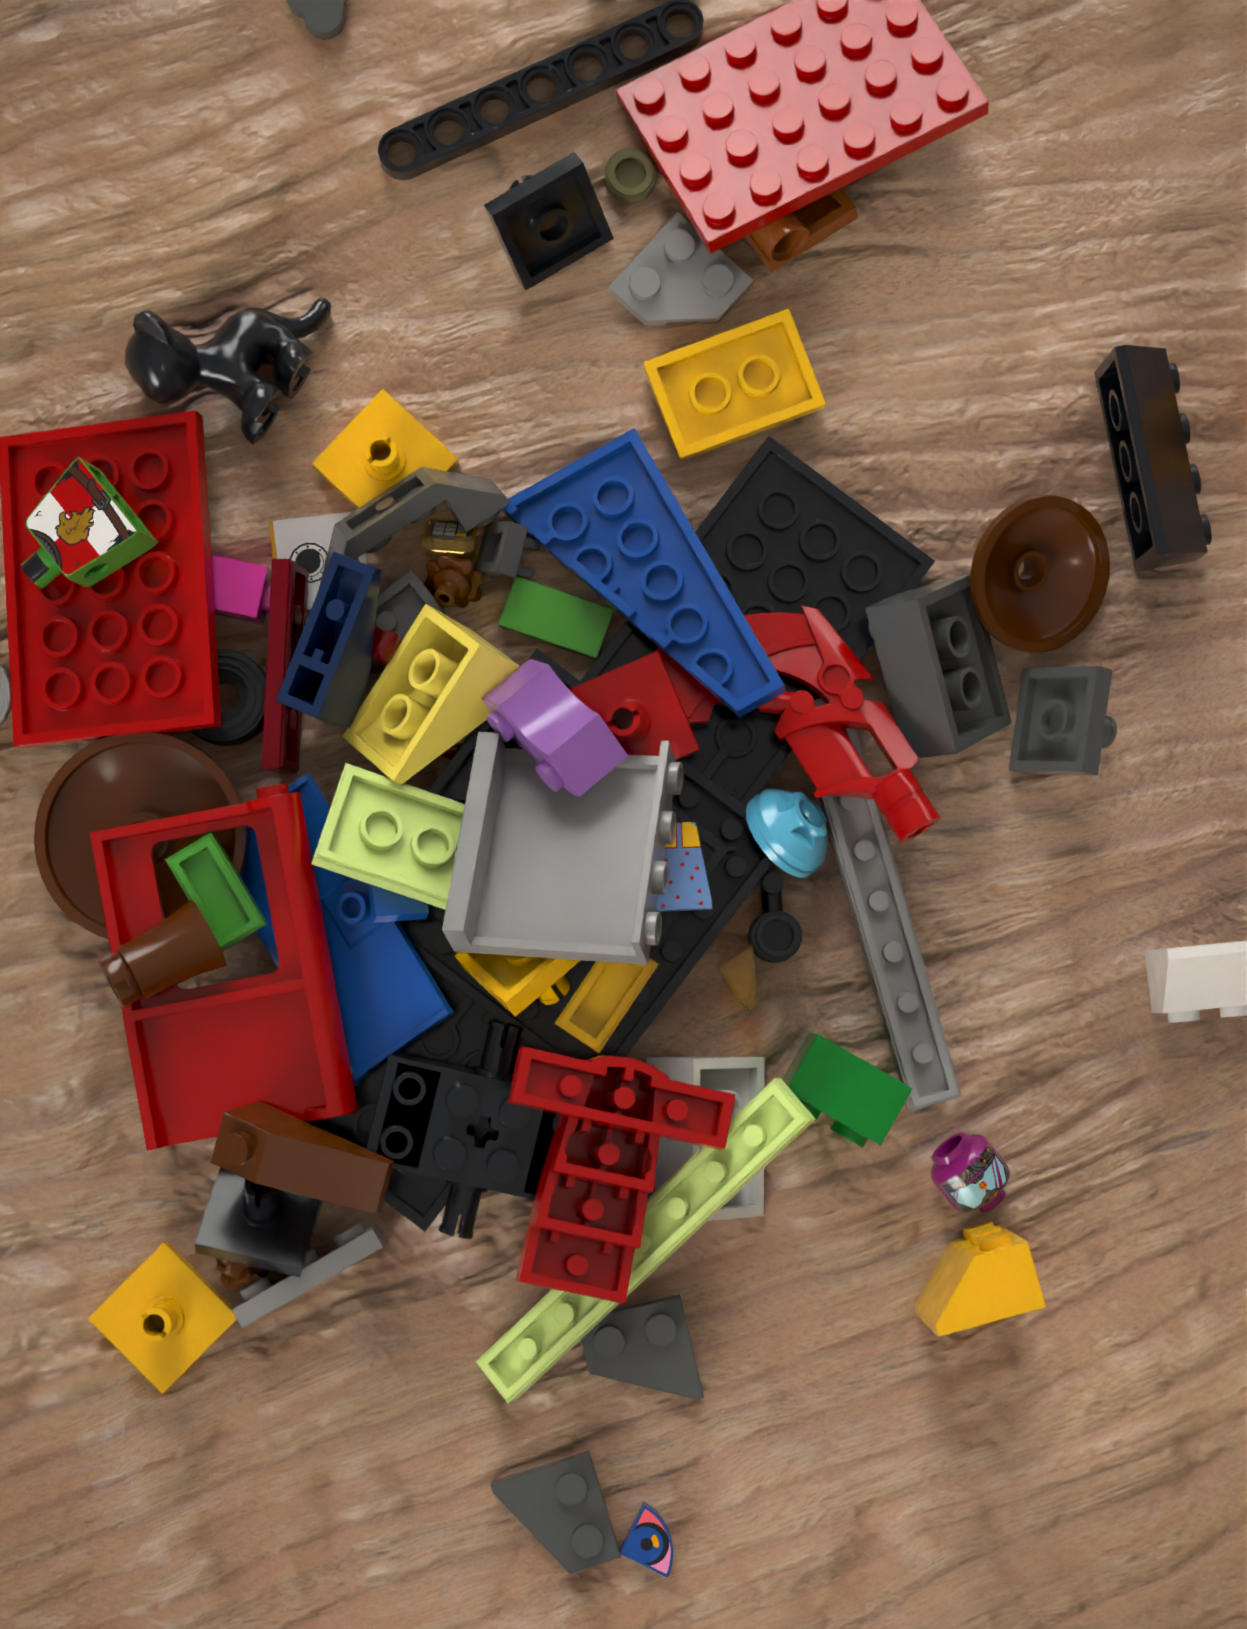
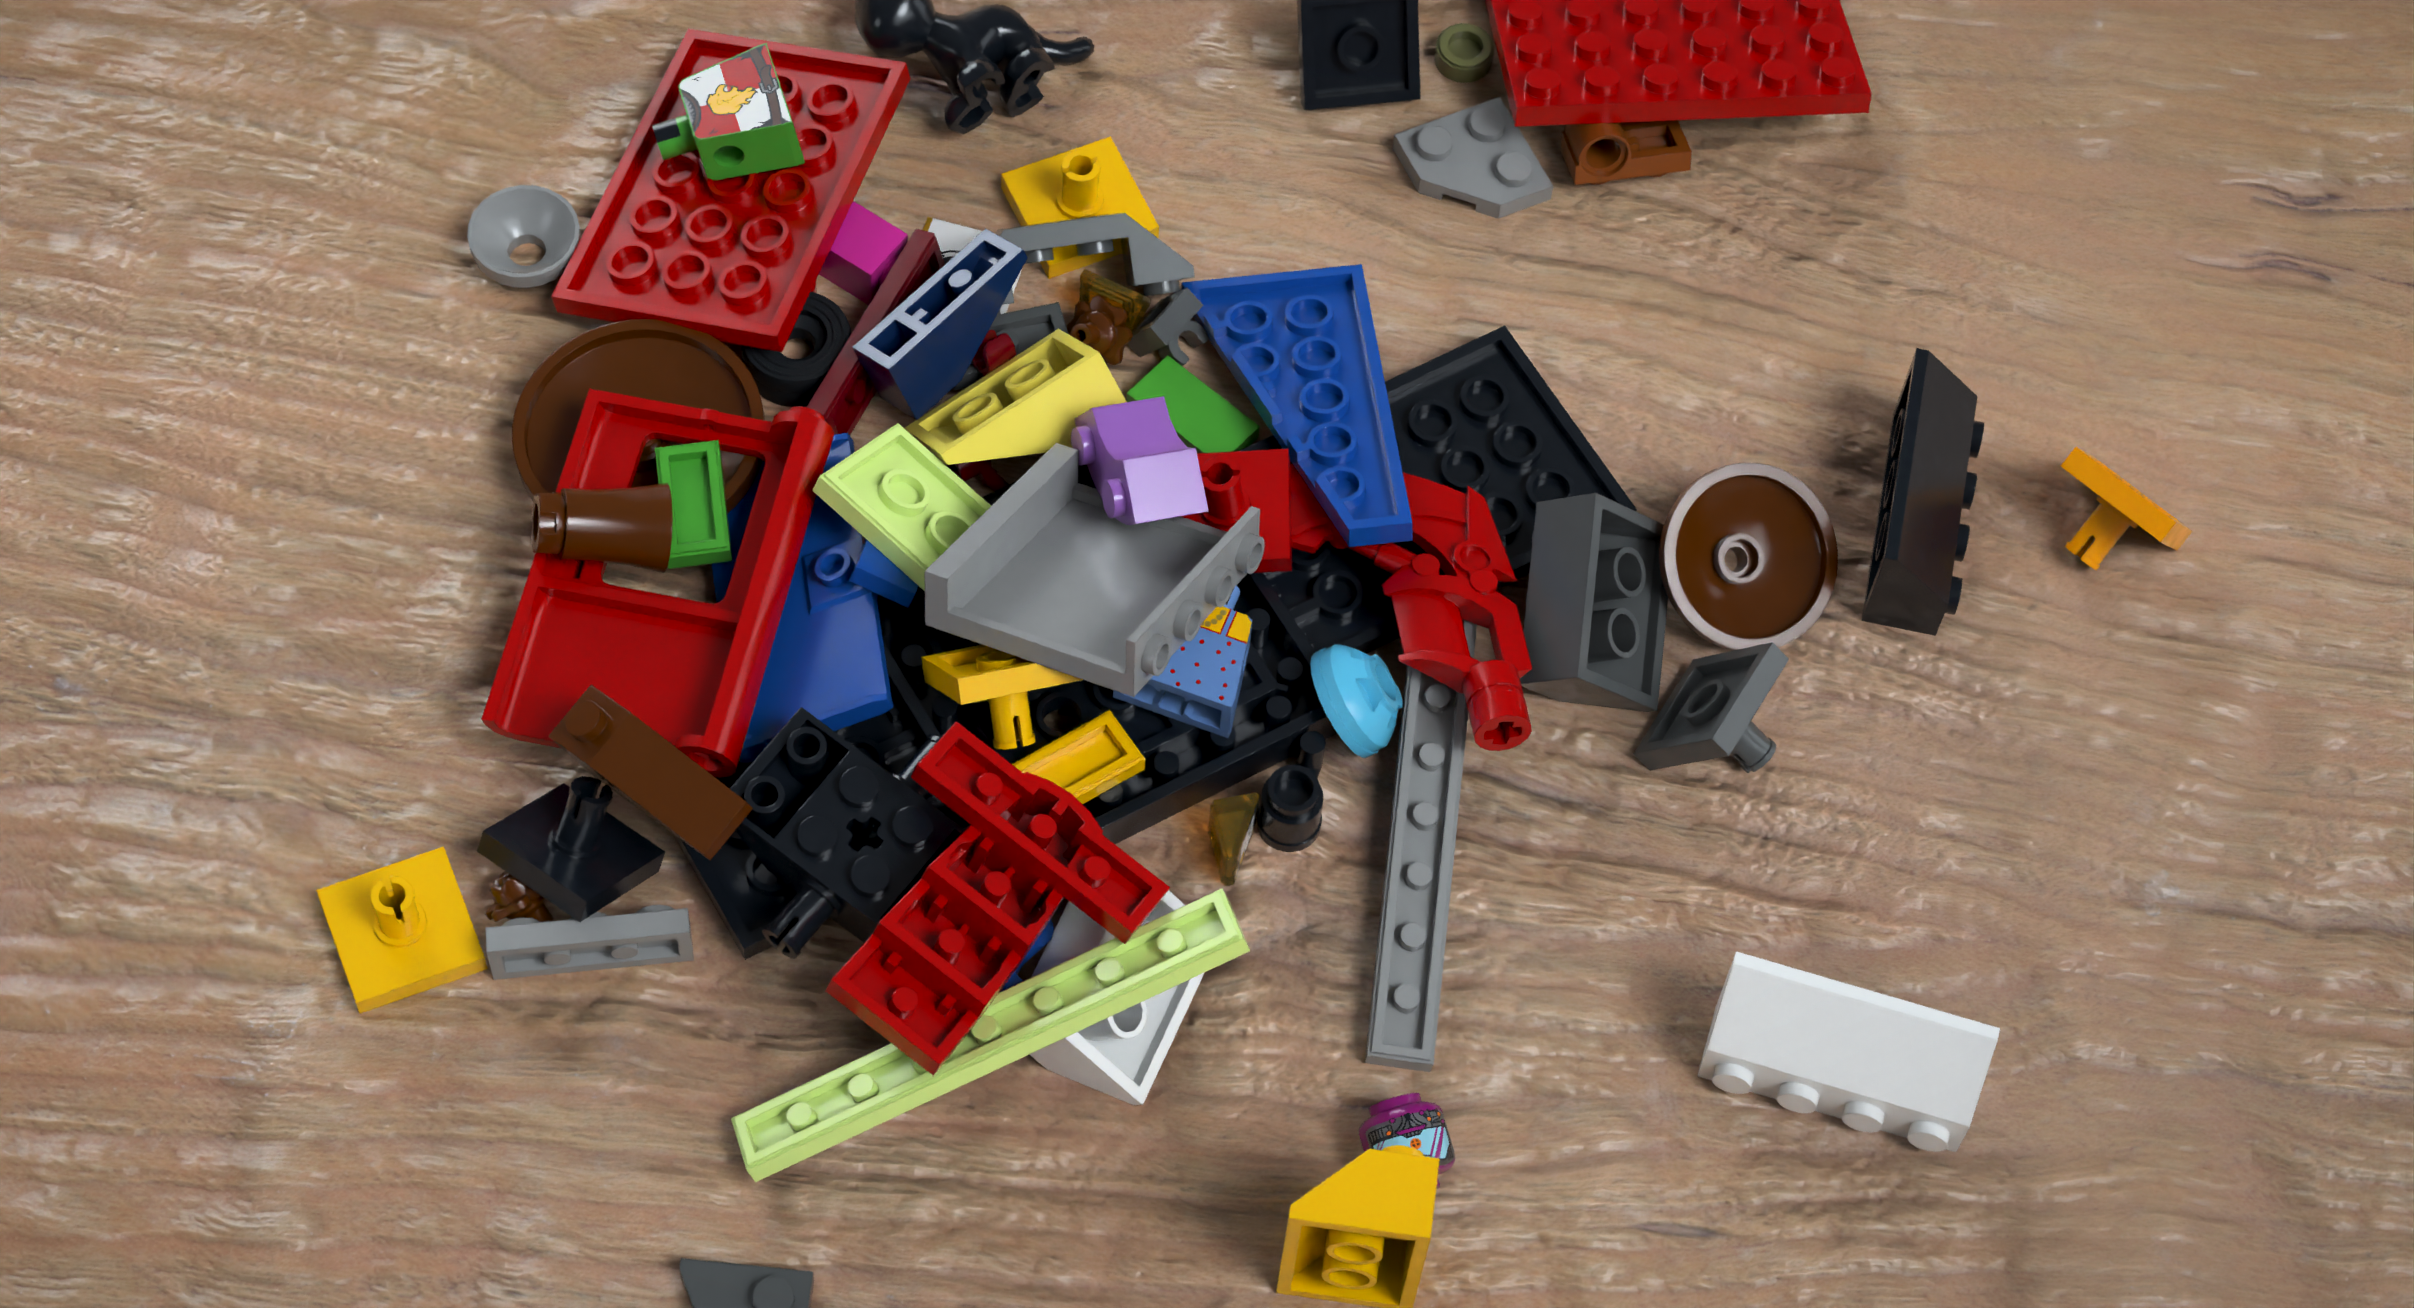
camera: 25 degrees right, 25 degrees down
(645, 1348) = (935, 1185): dark grey wing -> none
(734, 385) = (1488, 271): yellow plate -> none
(846, 1089) = (1299, 980): green brick -> none

